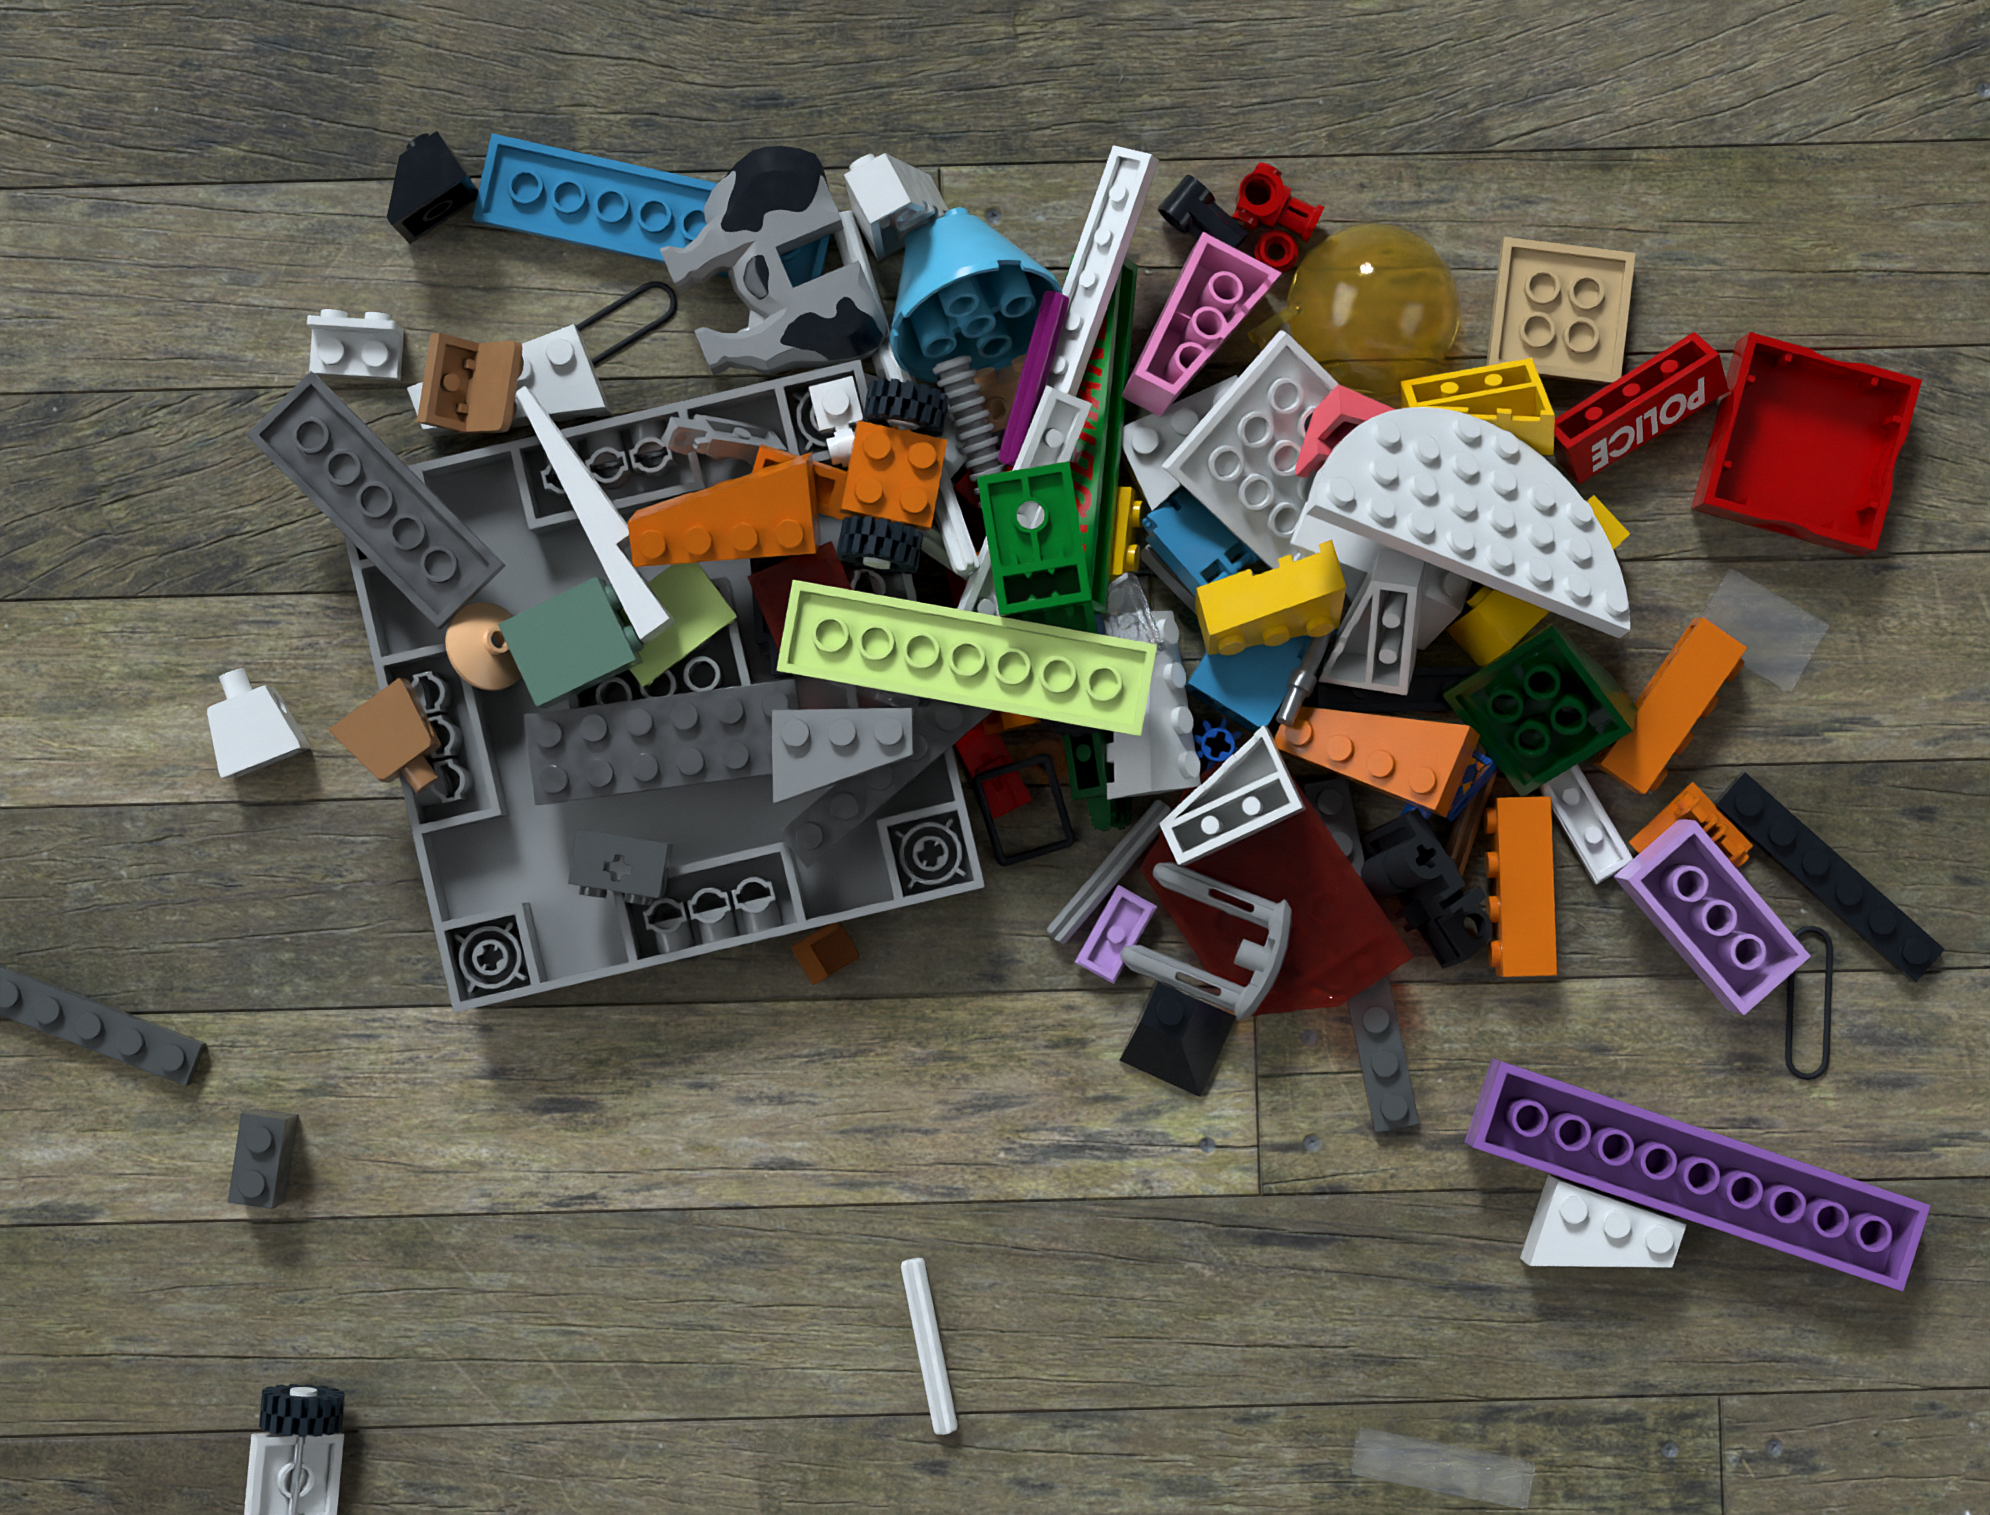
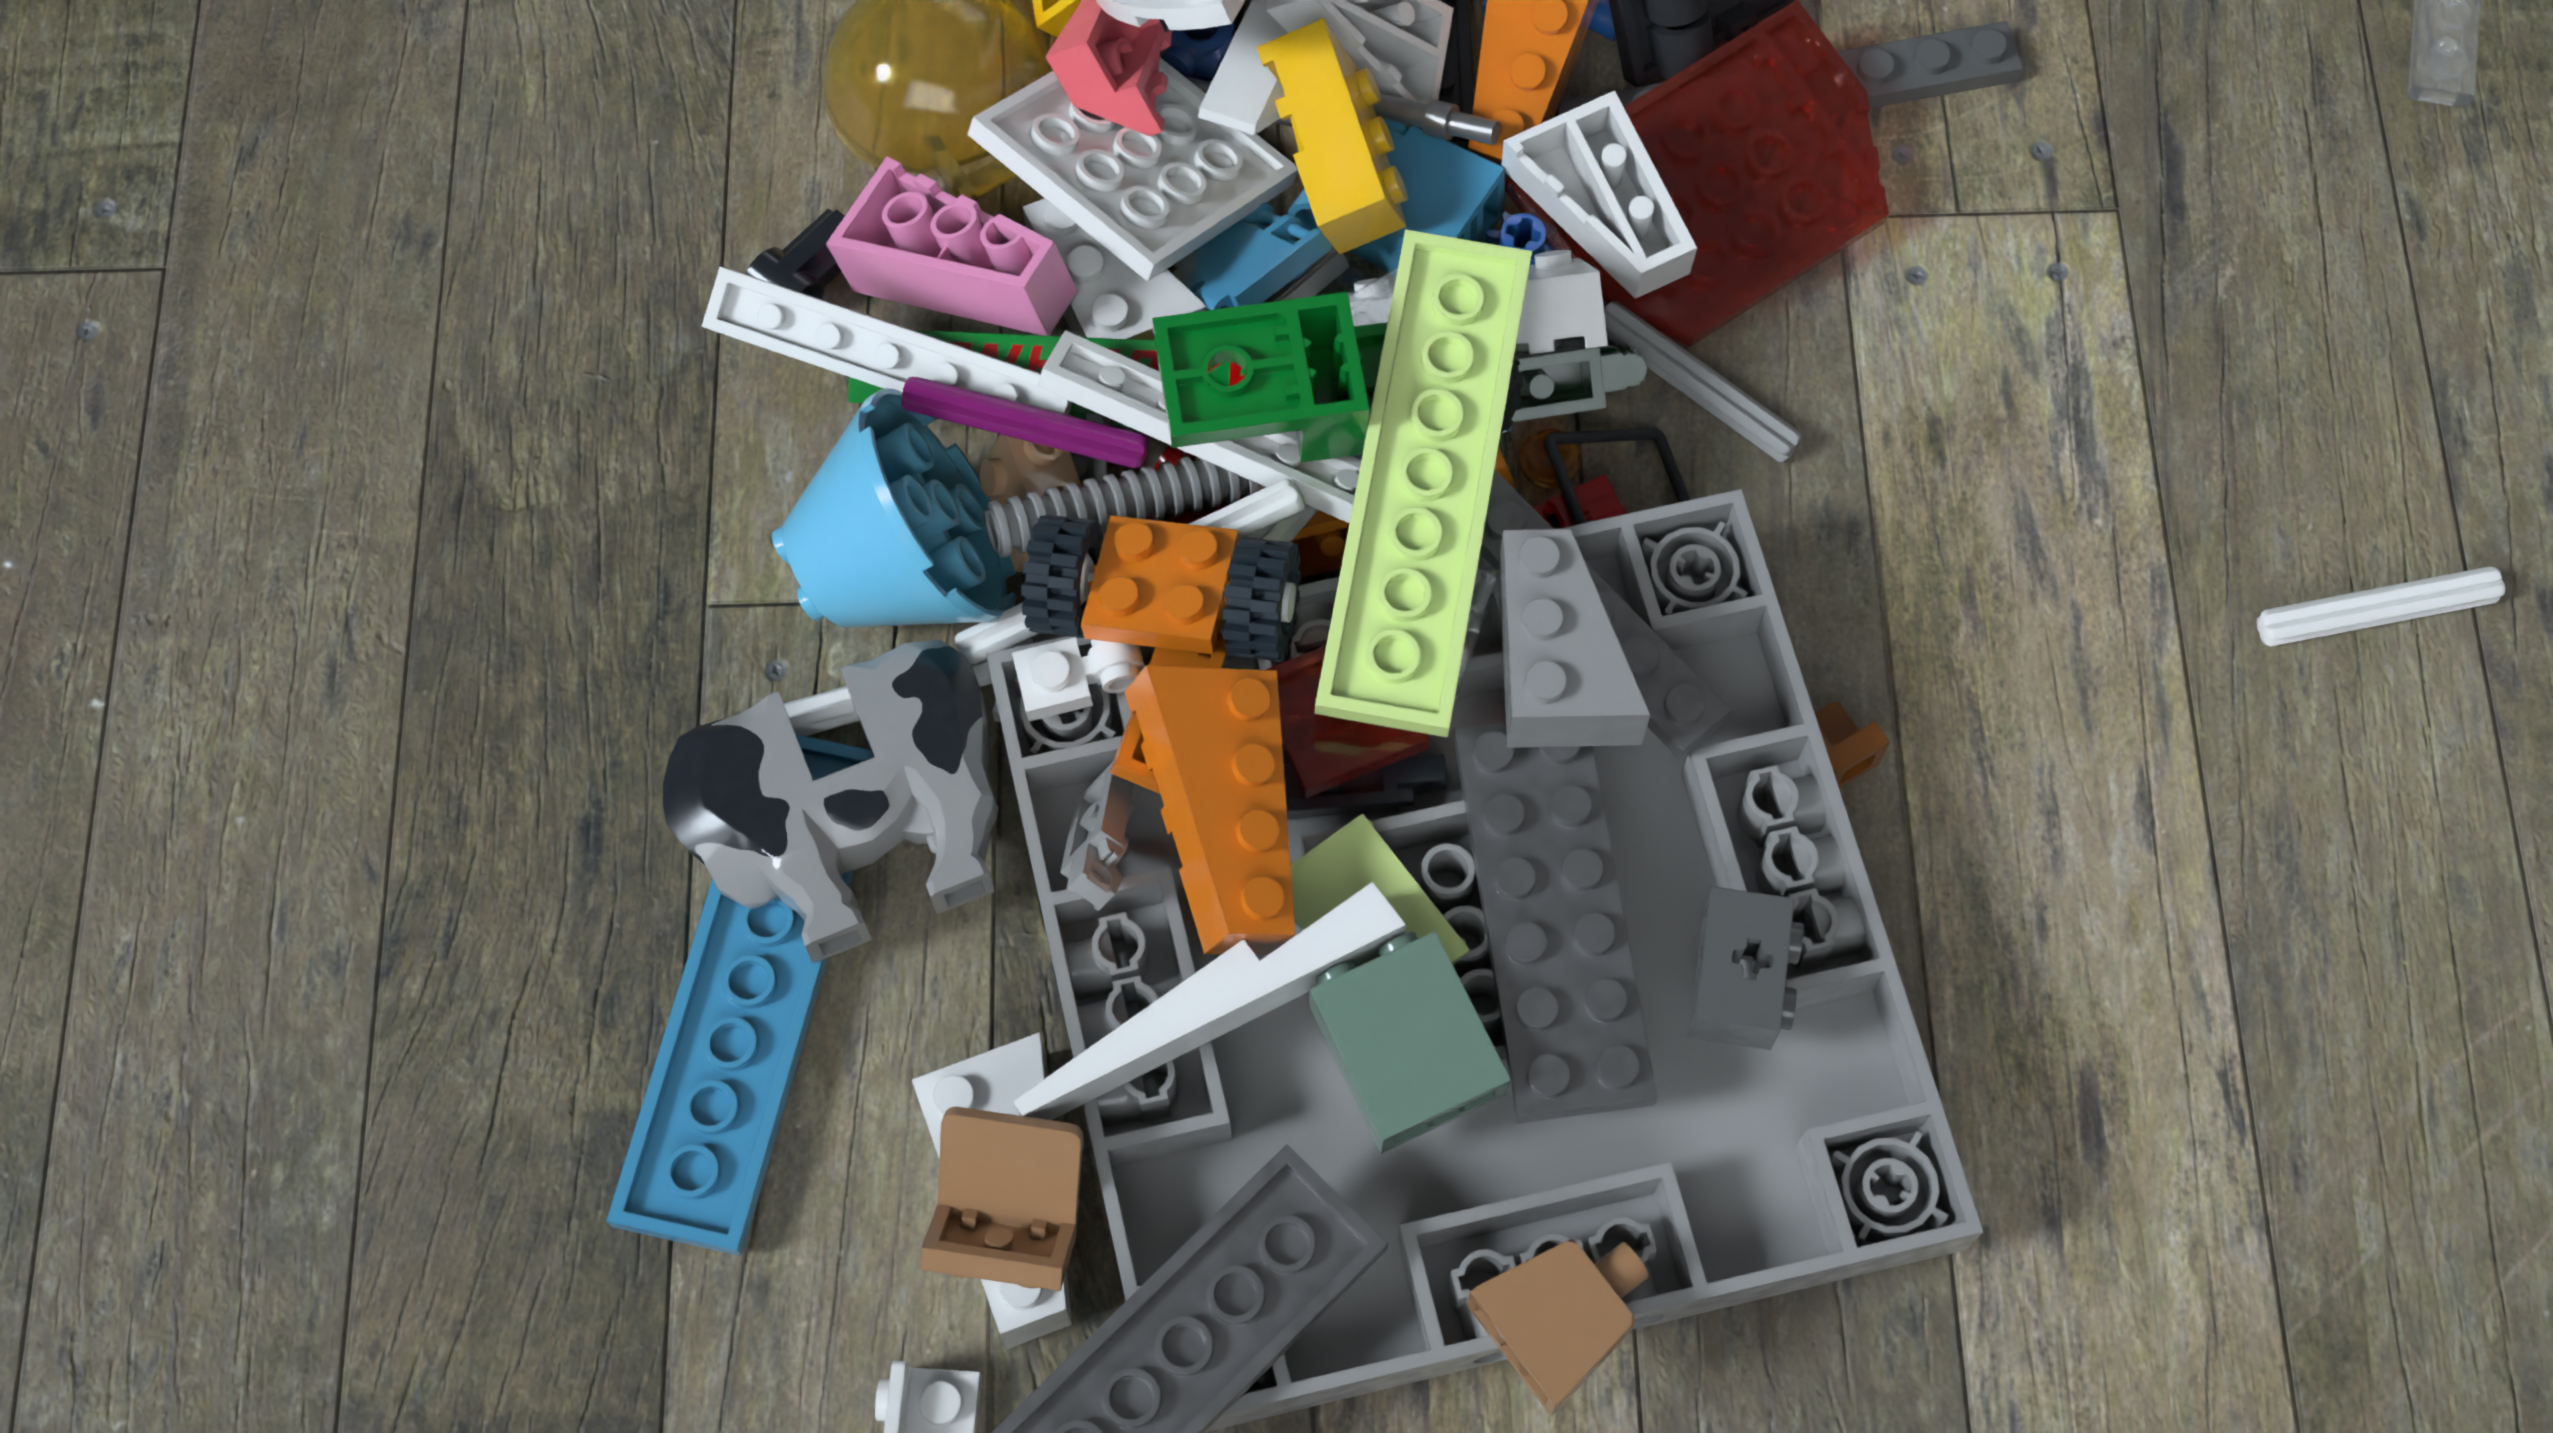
camera: 90 degrees left, 20 degrees down
(428, 187) = (676, 1301): black slope -> none
(472, 650) = (1412, 1186): light nougat dish -> none
(653, 284) = (879, 1047): black piece -> none
(891, 201) = (763, 621): white wedge -> none
(1117, 927) = (1784, 371): lavender plate -> none
(1177, 1038) = (1916, 304): black slope -> none
(1263, 961) = (1815, 167): light grey piece -> none
(1279, 208) = (790, 178): red connector -> none
(1282, 240) = (844, 174): red plate -> none

